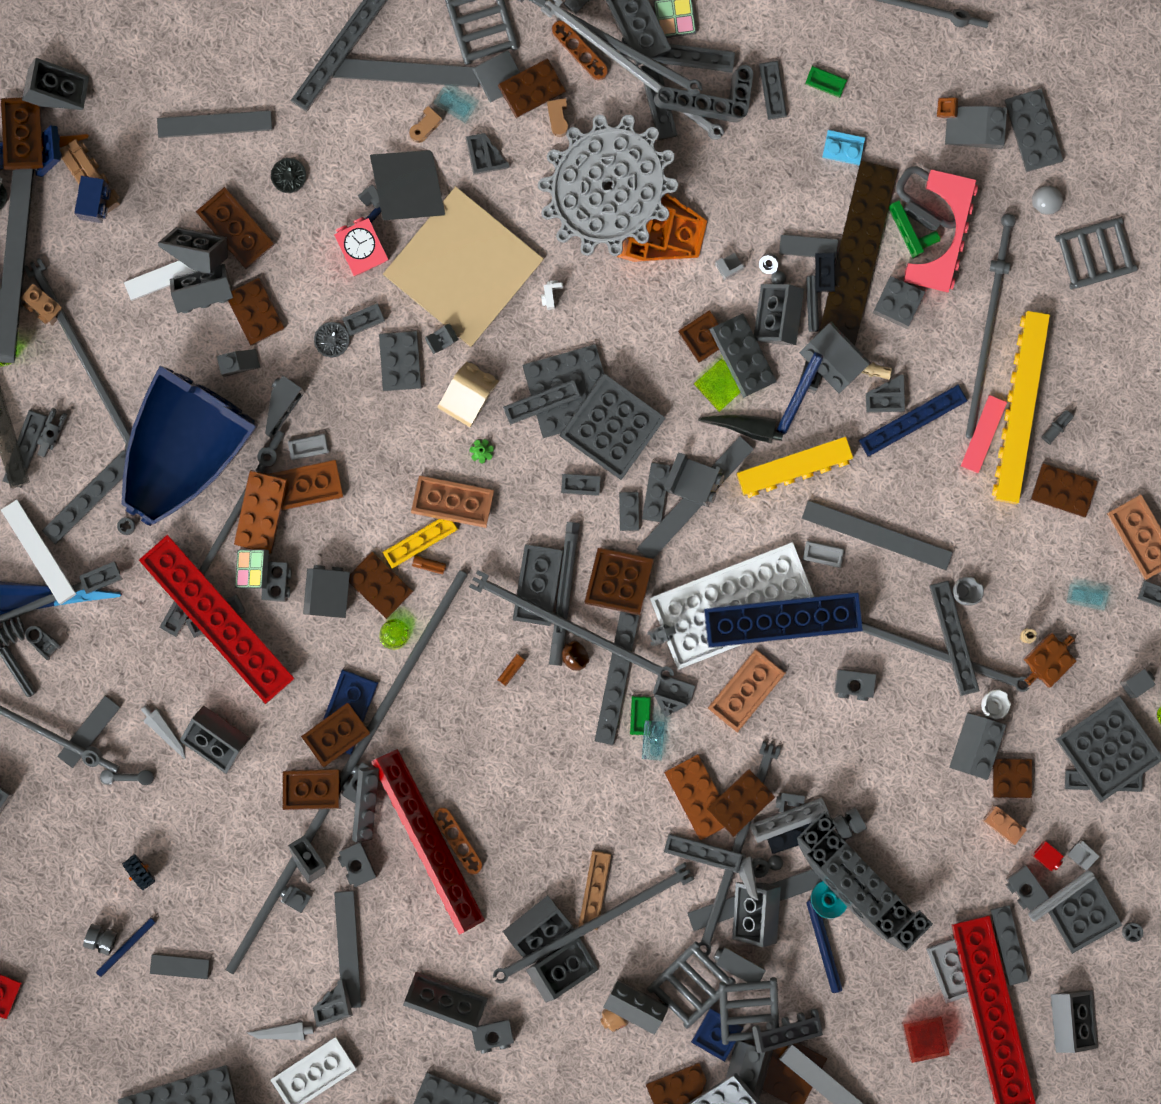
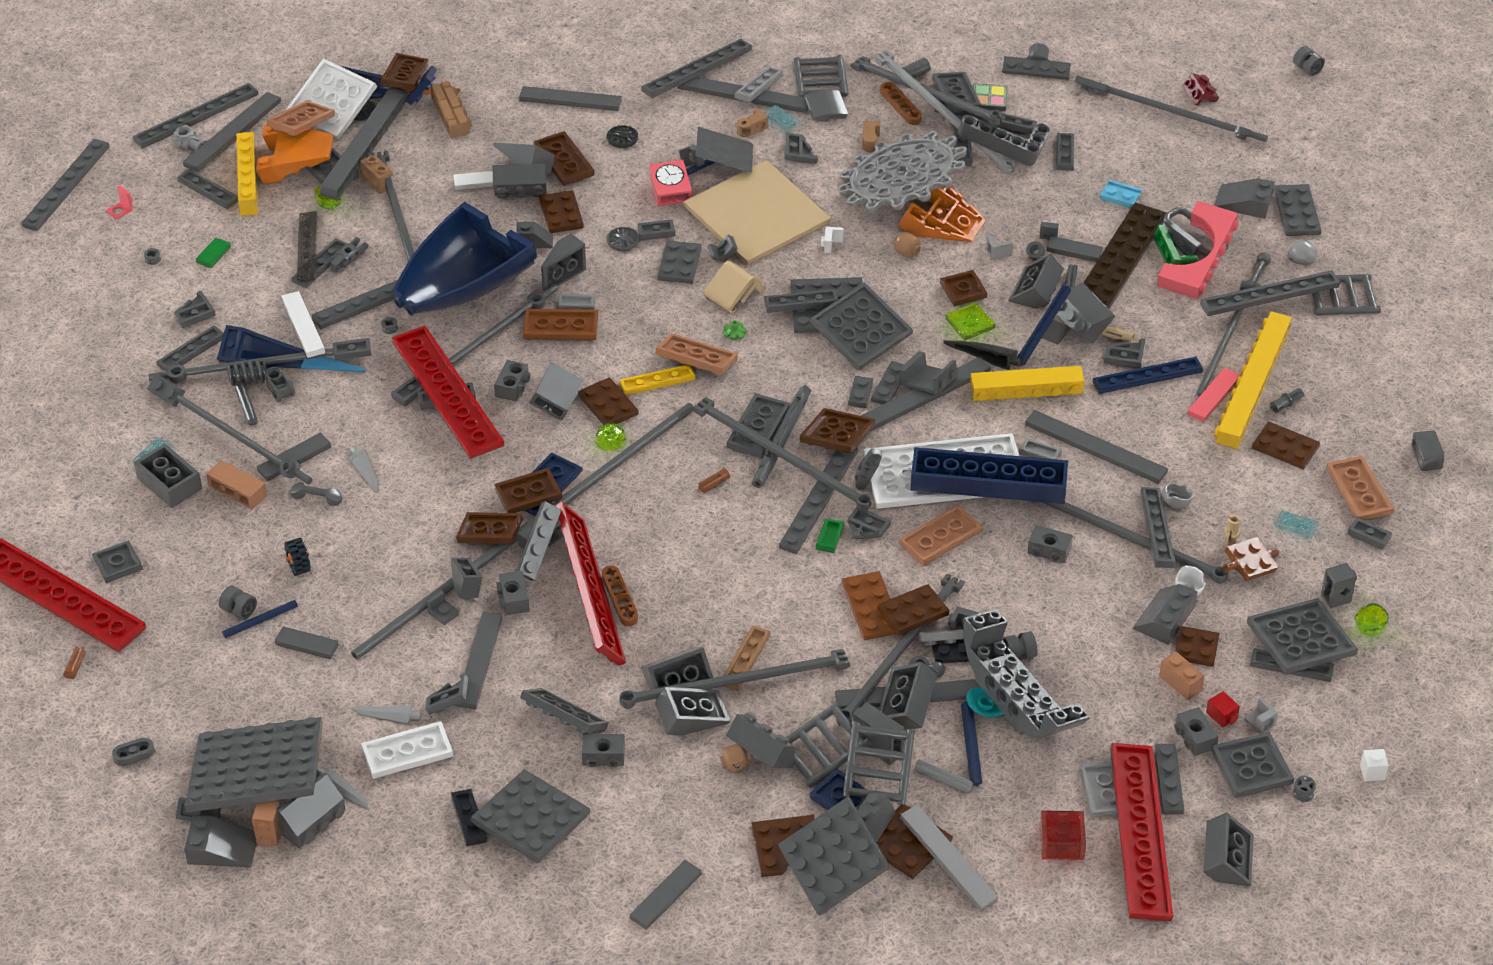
camera: 10 degrees right, 40 degrees down
(46, 786) = (236, 484): none -> nougat brick
(54, 86) = (441, 49): dark grey slope -> none
(92, 199) = (448, 105): dark blue brick -> none
(214, 739) = (410, 478): dark grey slope -> none
(252, 569) = (493, 365): tile -> none
(260, 511) = (516, 329): dark orange plate -> none
(417, 59) = (758, 84): none -> light grey tile
(429, 565) = (659, 395): dark orange piece -> none
(531, 88) = (850, 114): reddish brown plate -> none
(577, 650) = (778, 477): reddish brown hair -> none
(580, 484) = (820, 364): dark grey plate -> none
(634, 287) = (907, 244): none -> medium nougat head
(653, 740) = (837, 552): clear light blue plate -> none
(703, 853) = (864, 644): dark grey tile -> none
(743, 355) = (996, 302): dark grey plate -> none
(747, 875) = (904, 659): light grey bar -> none
(777, 228) = (1048, 229): none -> dark grey plate
(787, 1033) = (913, 793): dark grey hinge -> none
(806, 989) = (943, 776): none -> light grey axle
(825, 81) = (1114, 153): green tile -> none
(825, 272) = (1086, 261): black plate -> none
(898, 302) = (1150, 291): dark grey brick -> none
(947, 107) = (1220, 182): dark orange tile -> none
(1022, 281) = (1269, 293): none -> dark grey plate
(1061, 895) = (1231, 739): light grey axle -> none

